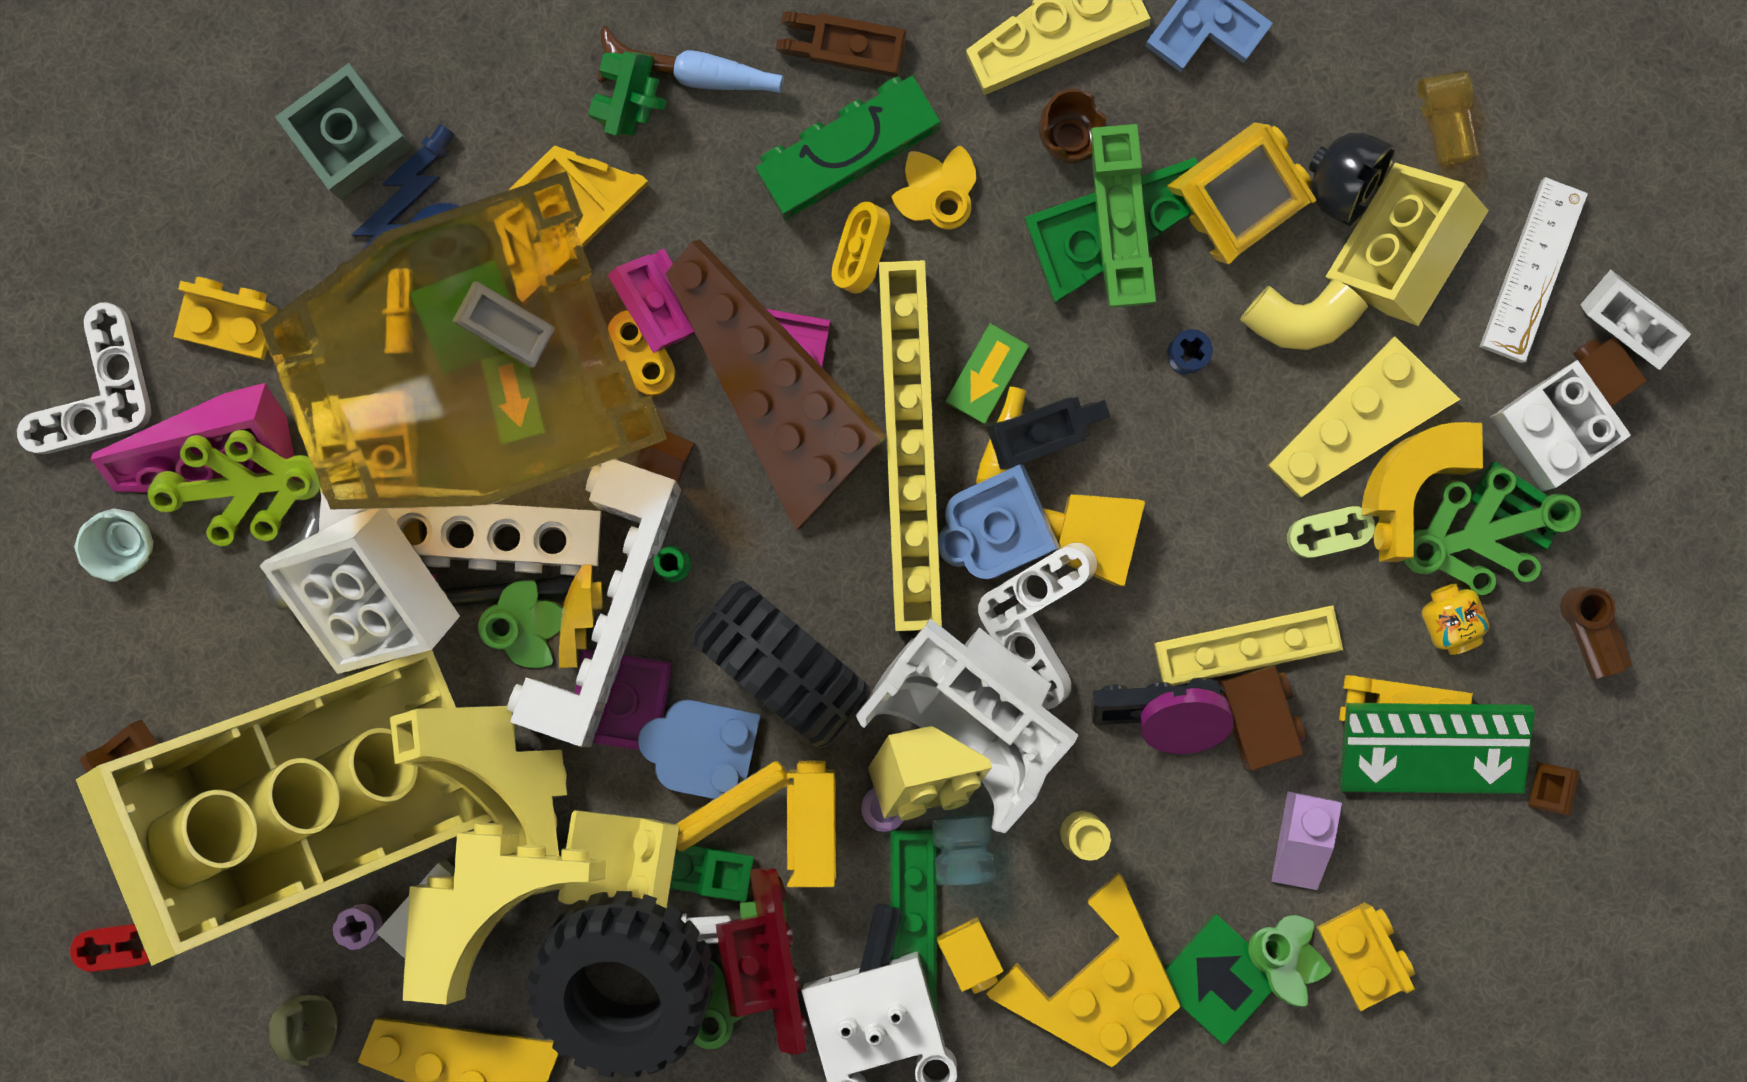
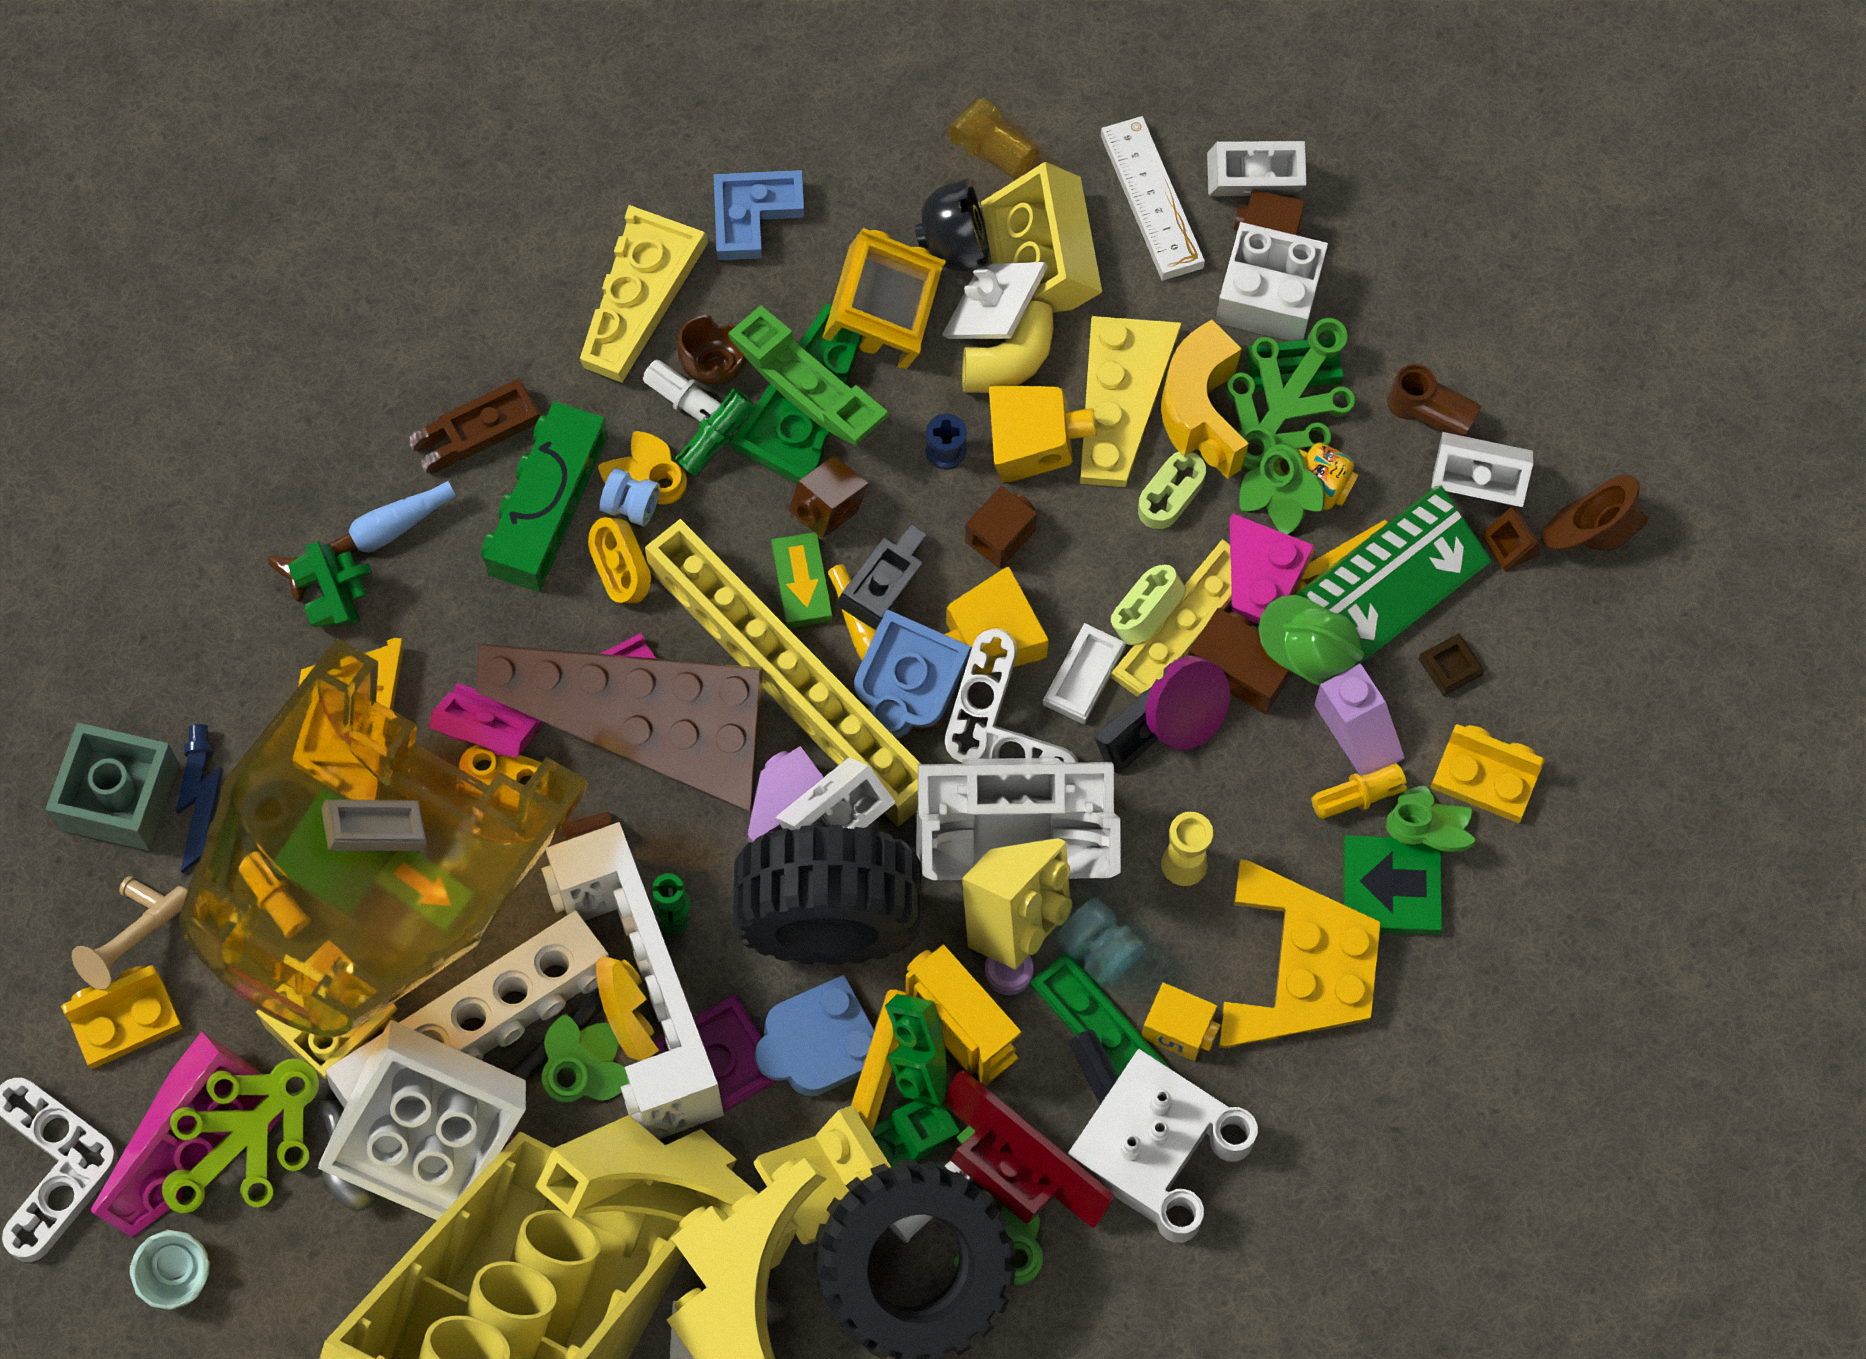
camera: 45 degrees left, 20 degrees down
(313, 258) = (96, 963): none -> tan piece
(759, 827) = (921, 1057): none -> green slope
(828, 543) = (779, 785): none -> lavender slope
(845, 597) = (844, 797): none -> white brick
(906, 204) = (629, 497): none -> light blue wheel
(1017, 201) = (715, 432): none -> green pin
(1023, 145) = (680, 391): none -> white axle
(1058, 326) = (828, 496): none -> reddish brown brick
(1135, 625) = (1084, 673): none -> white tile
(1173, 457) = (1001, 526): none -> reddish brown brick
(1229, 613) = (1148, 604): none -> yellowish green beam
(1258, 890) = (1360, 791): none -> yellow axle
(1264, 399) = (1034, 430): none -> yellow torso
(1321, 750) = (1309, 638): none -> bright green piece
(1328, 265) = (995, 301): none -> white piece
(1339, 661) = (1263, 565): none -> dark pink wing
(1411, 610) = (1282, 493): none -> bright green plate
(1418, 847) = (1451, 664): none -> dark brown tile
(1582, 720) = (1483, 469): none -> white brick
(1638, 830) = (1600, 519): none -> reddish brown piece

